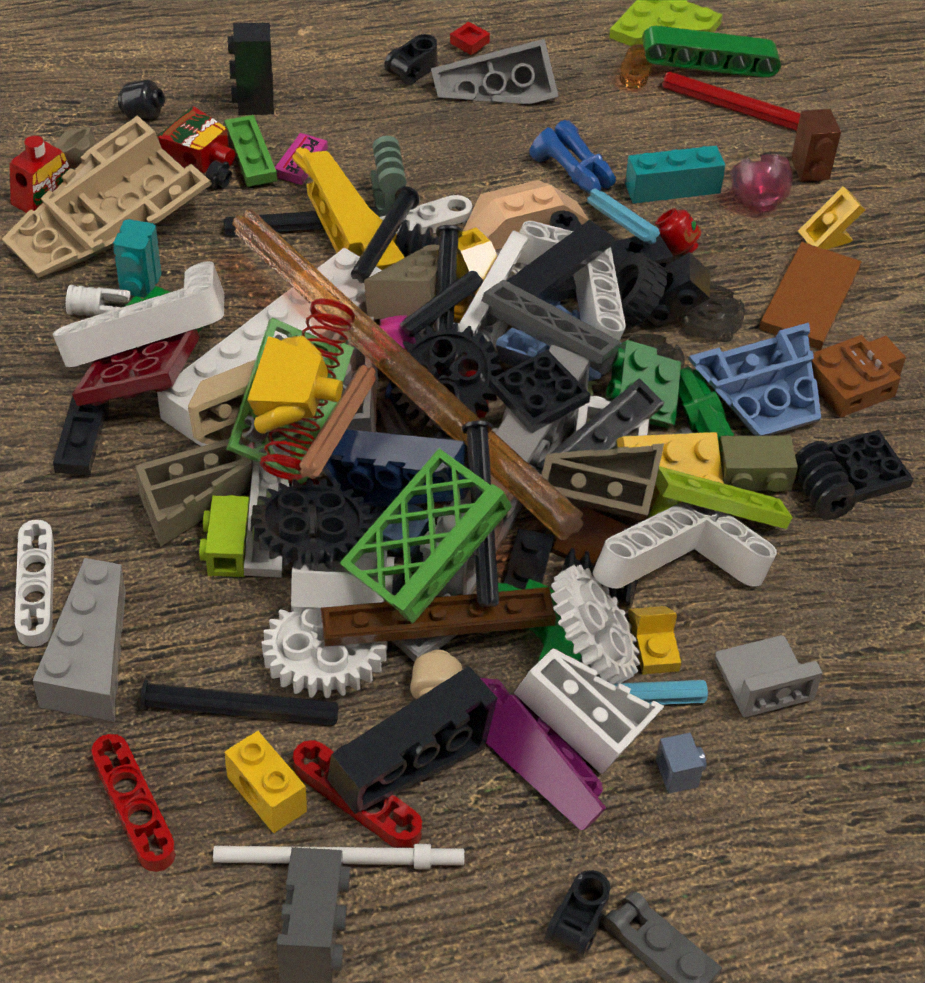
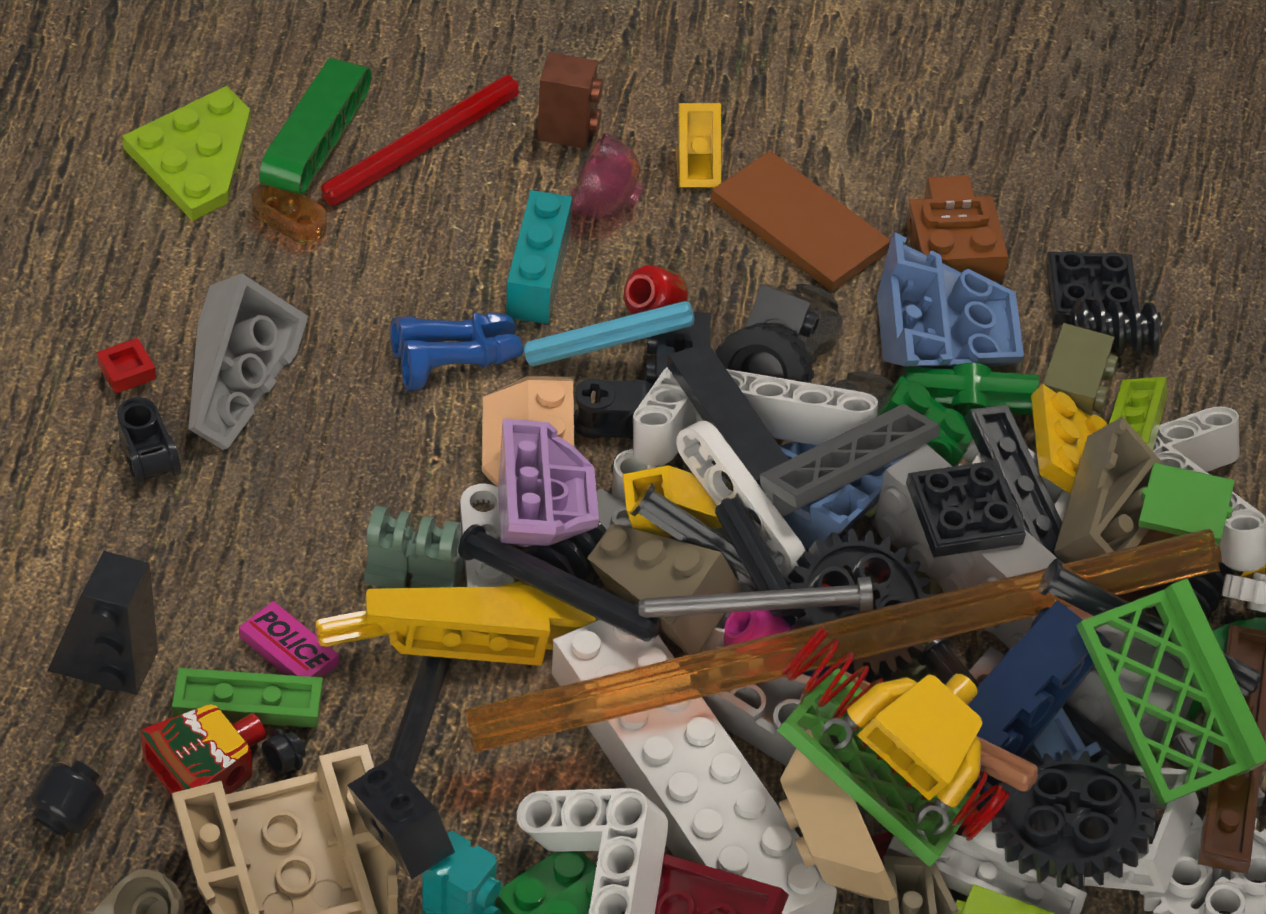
camera: 70 degrees left, 0 degrees up
(146, 195) = (401, 818): none -> black brick
(425, 350) = (760, 600): none -> flat silver bar
(452, 199) = (543, 486): none -> lavender wedge
(615, 508) = (1185, 501): none -> bright green piece

